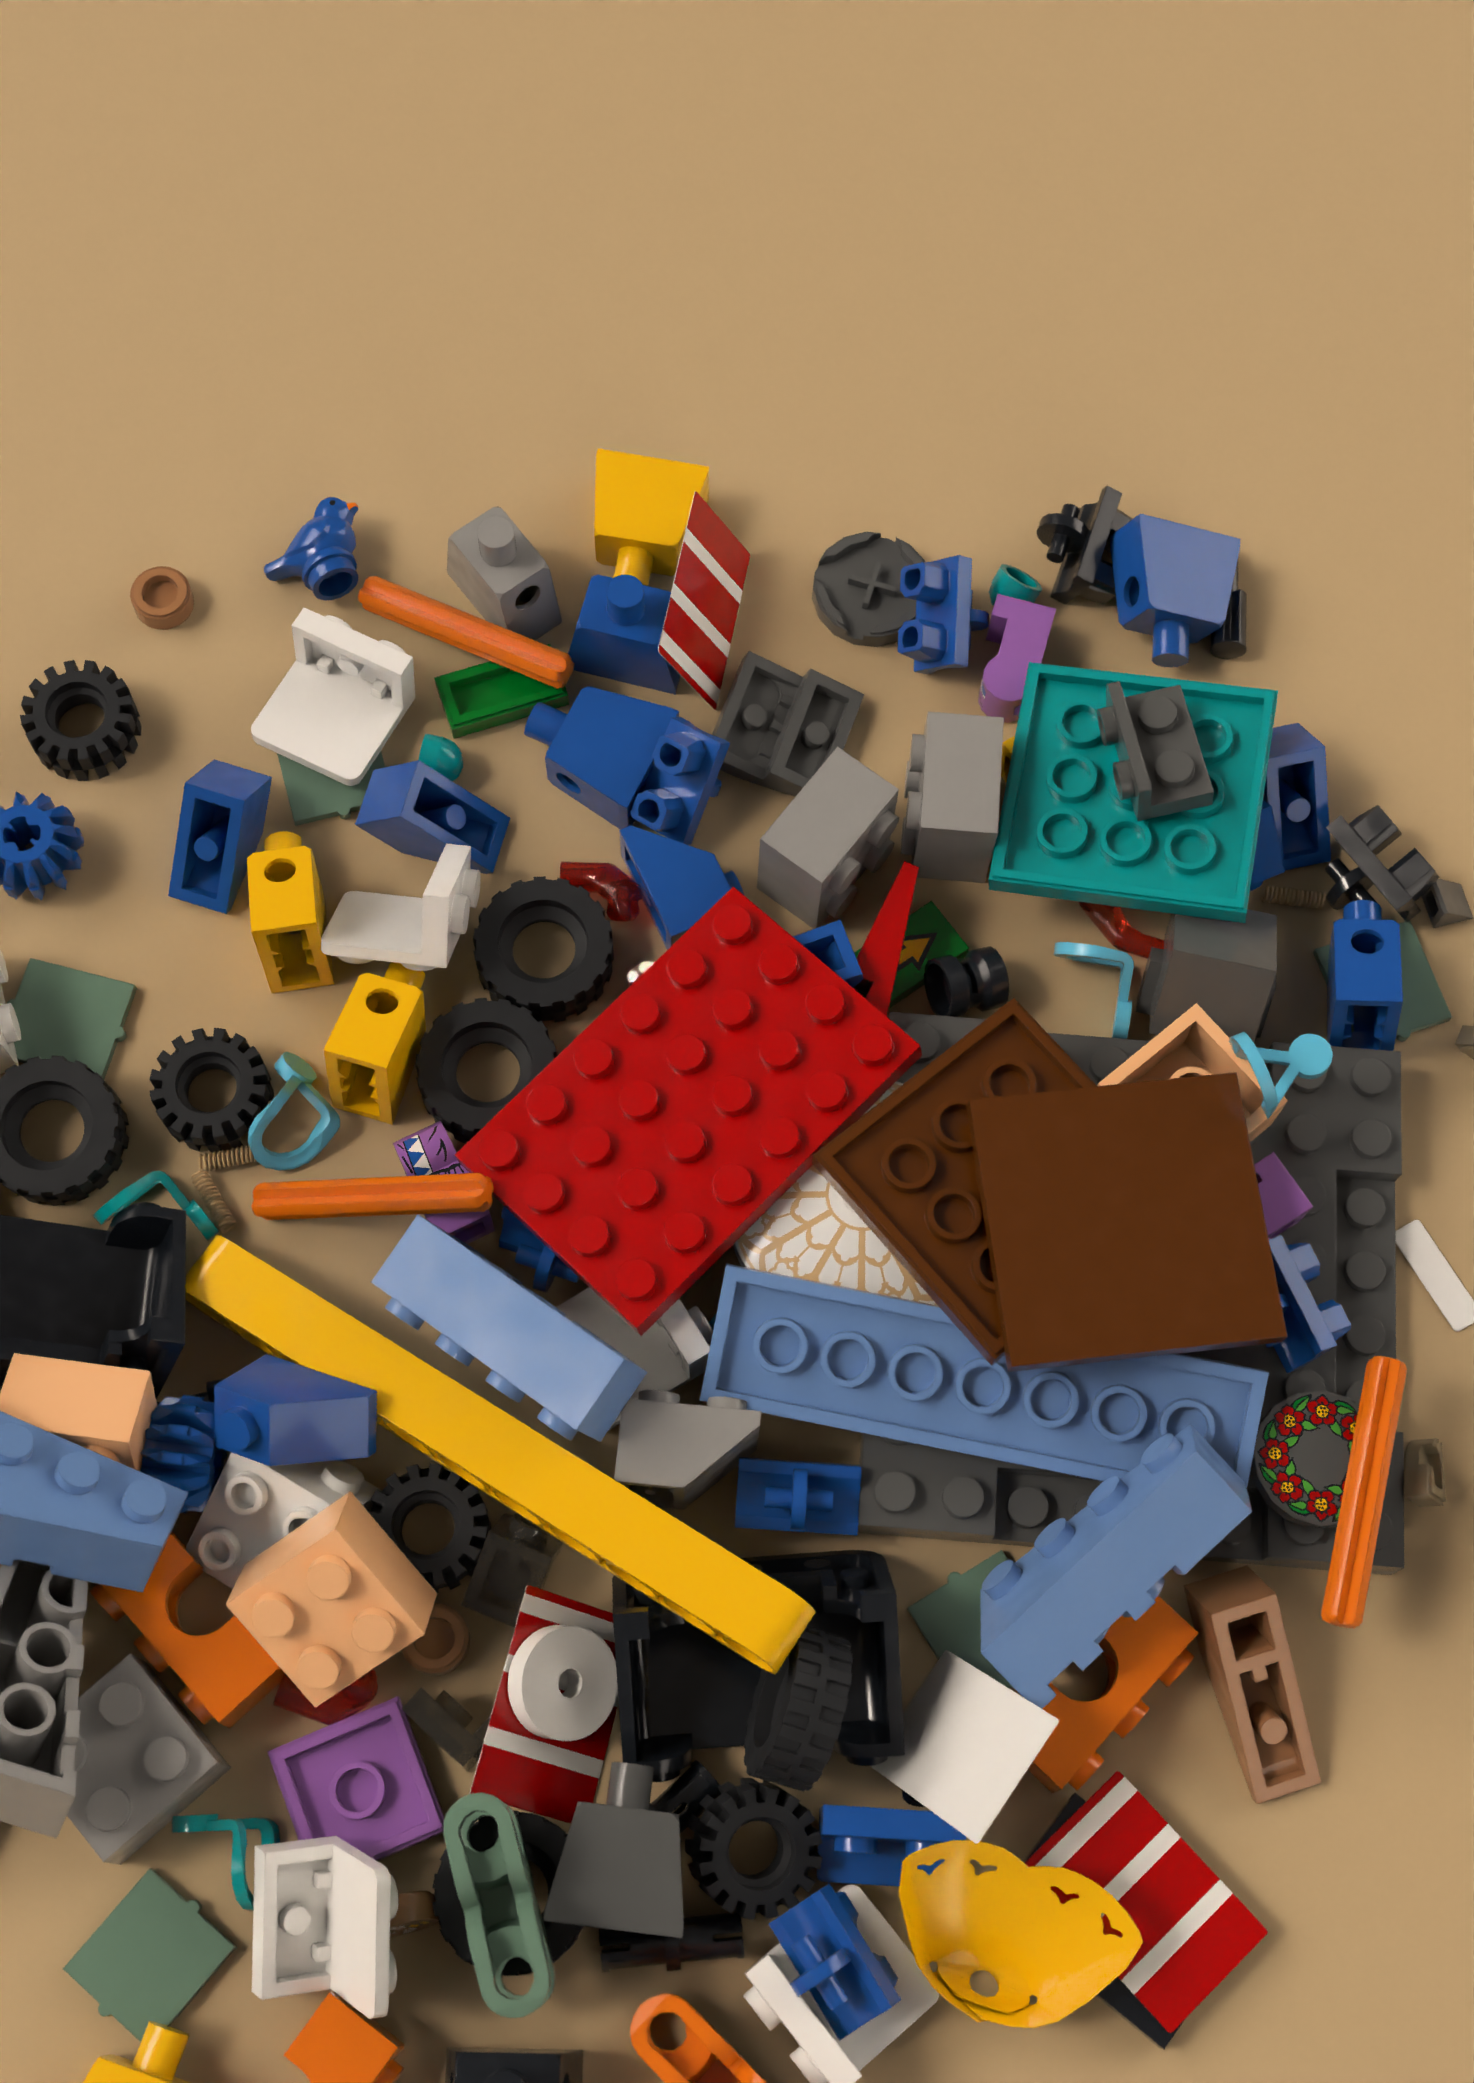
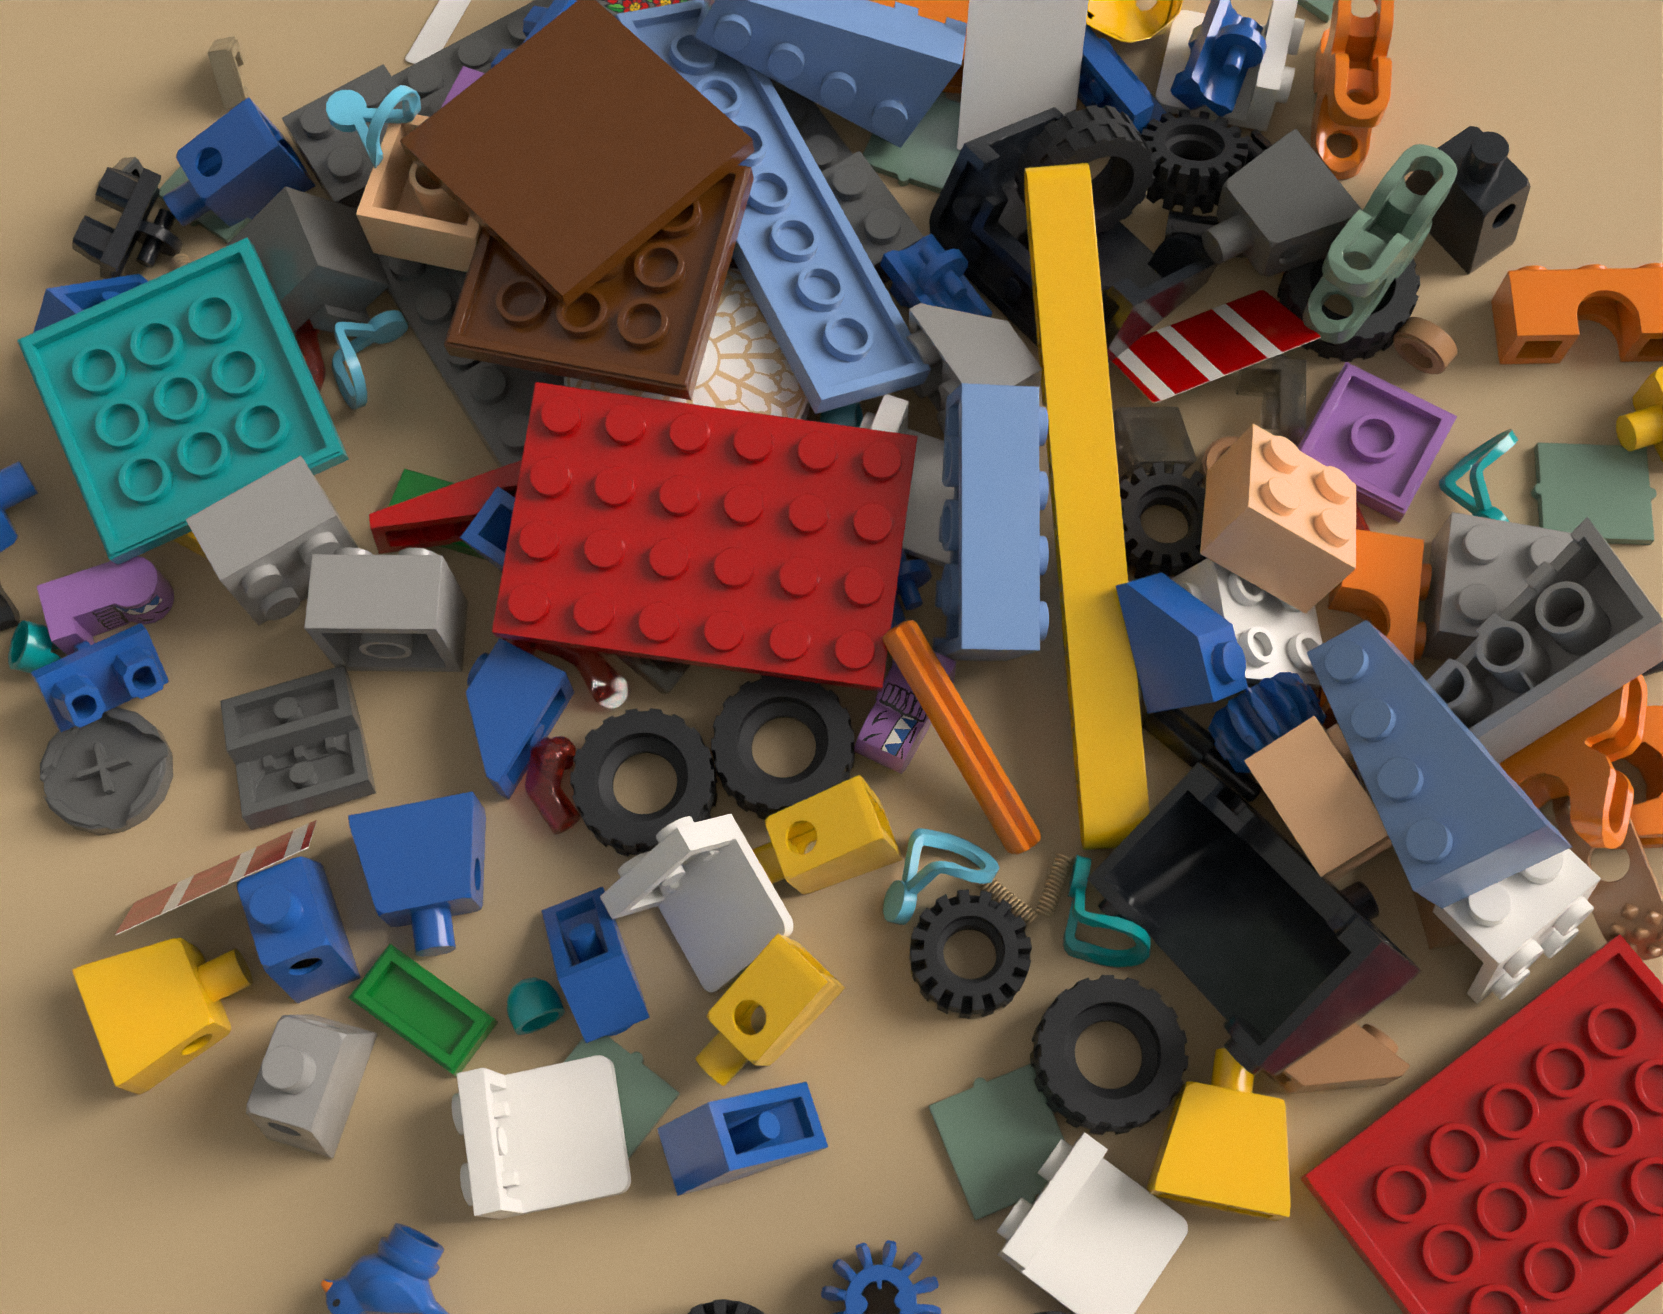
camera: 120 degrees left, 0 degrees up
(323, 1923) = (1466, 373): white bracket -> none
(466, 631) = (389, 1077): orange axle -> none
(536, 1675) = (1194, 342): white piece -> none
(680, 781) = (411, 771): blue hips -> none
(966, 983) = (434, 440): black wheel -> none
(1156, 751) = (139, 388): dark grey bracket -> none

